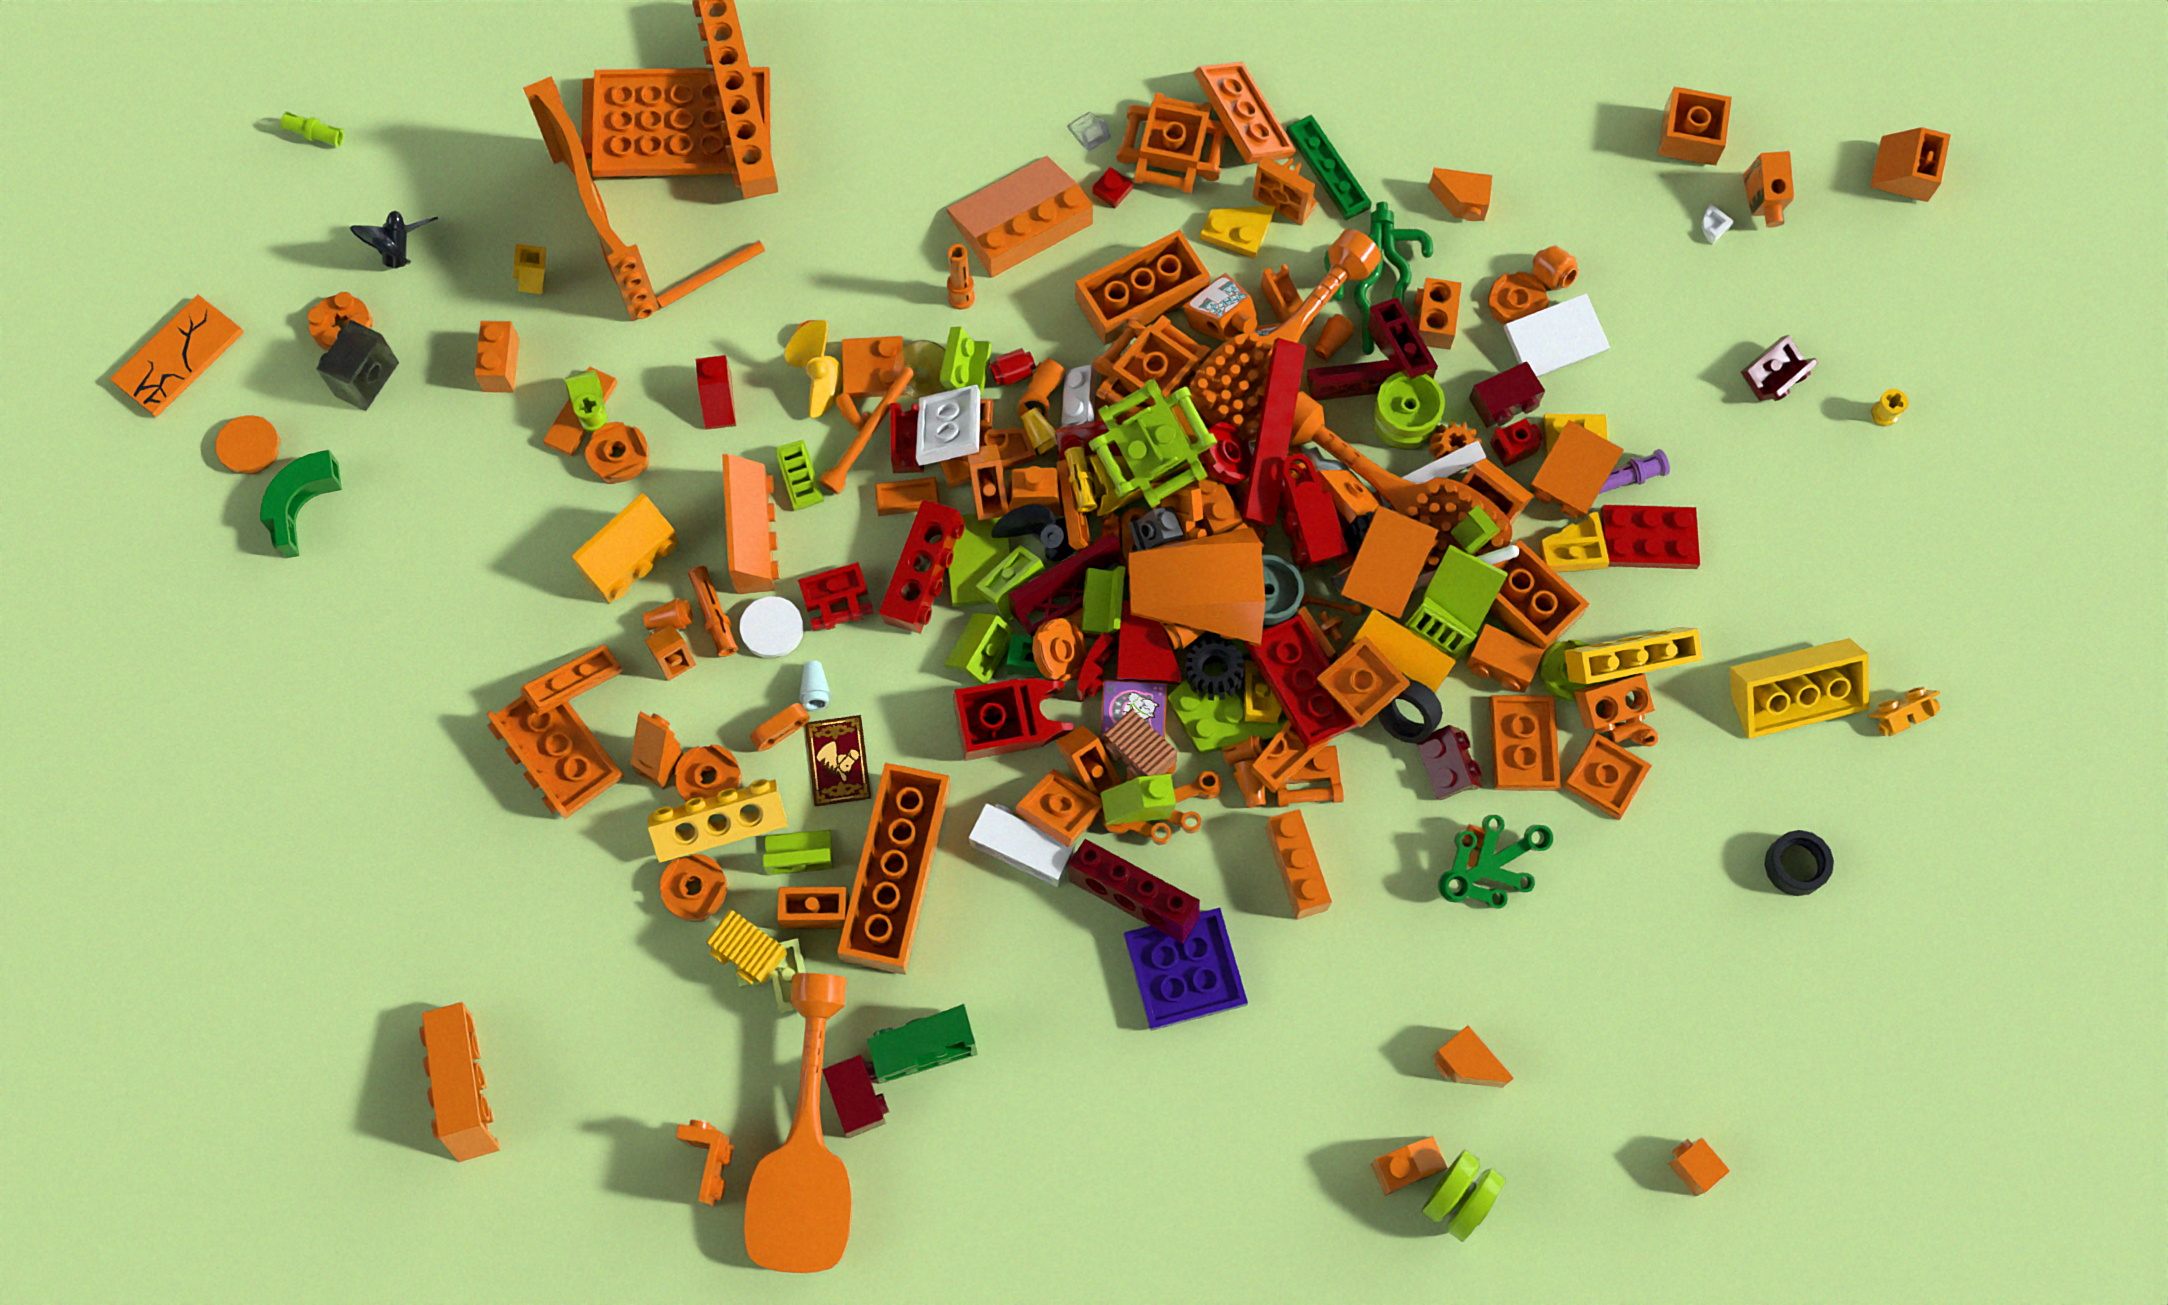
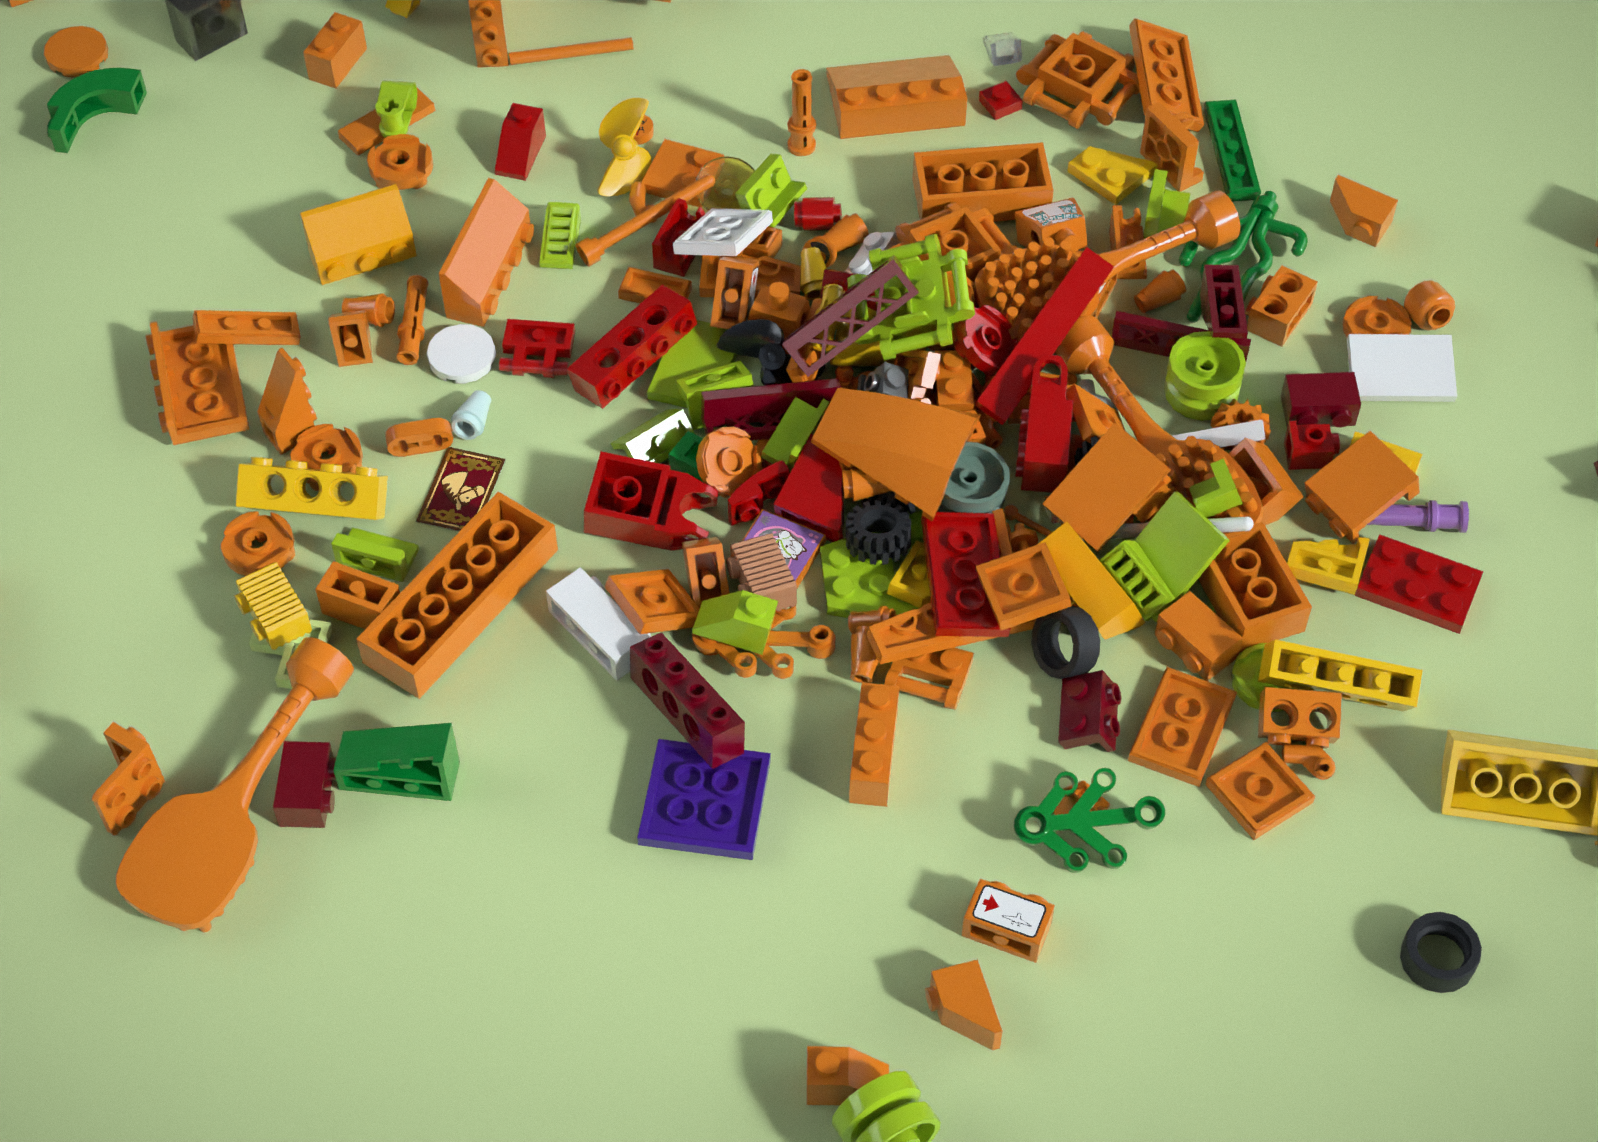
camera: 25 degrees right, 15 degrees down
(1101, 473) = (842, 305): none -> dark red fence
(1301, 252) = (1165, 206): none -> lime panel
(1470, 974) = (1008, 919): none -> brick

